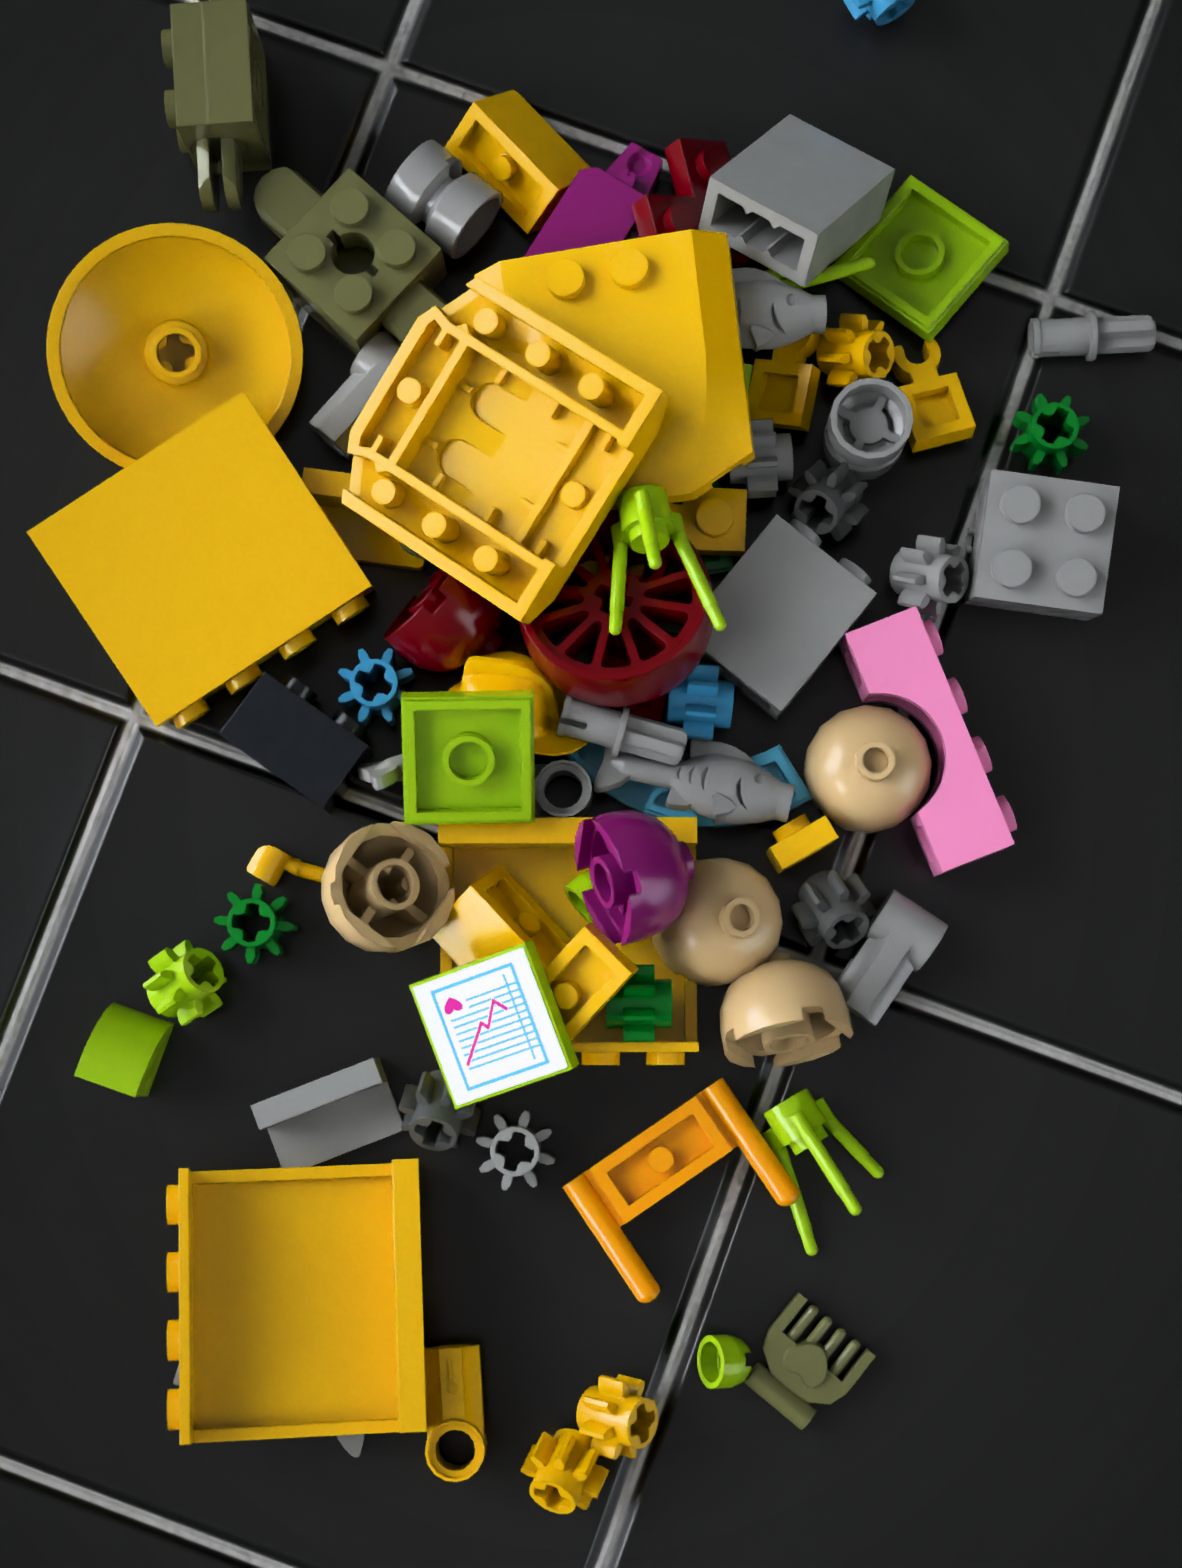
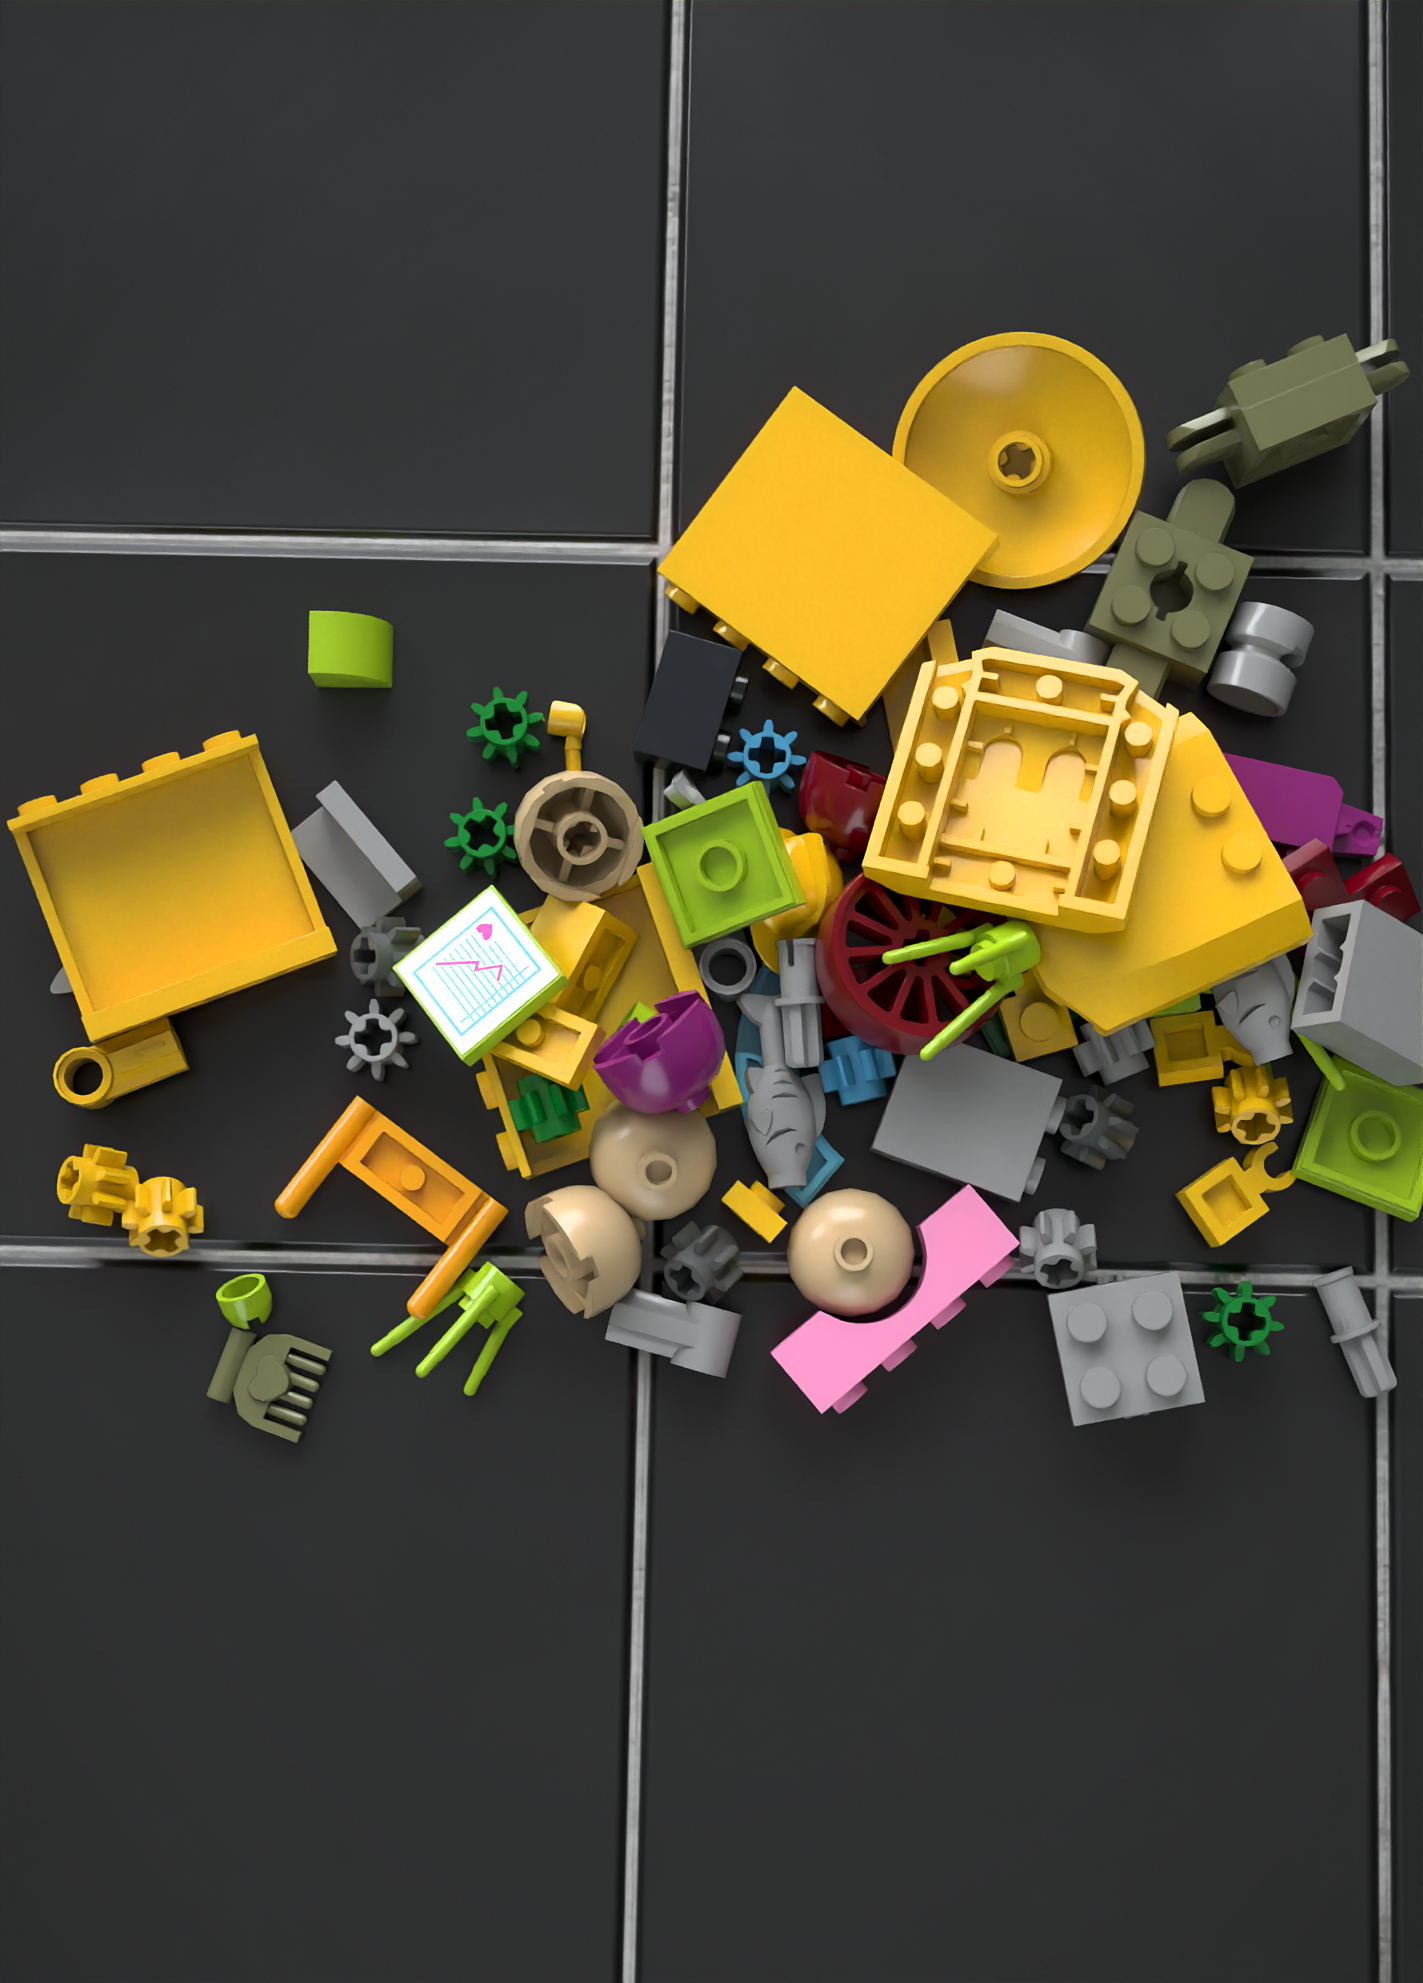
camera: 70 degrees right, 0 degrees up
(185, 982) = (430, 682): lime gear -> none
(338, 979) = (483, 821): none -> green gear
(517, 155) = (1331, 715): yellow panel -> none
(867, 427) = (1180, 1140): light grey wheel -> none

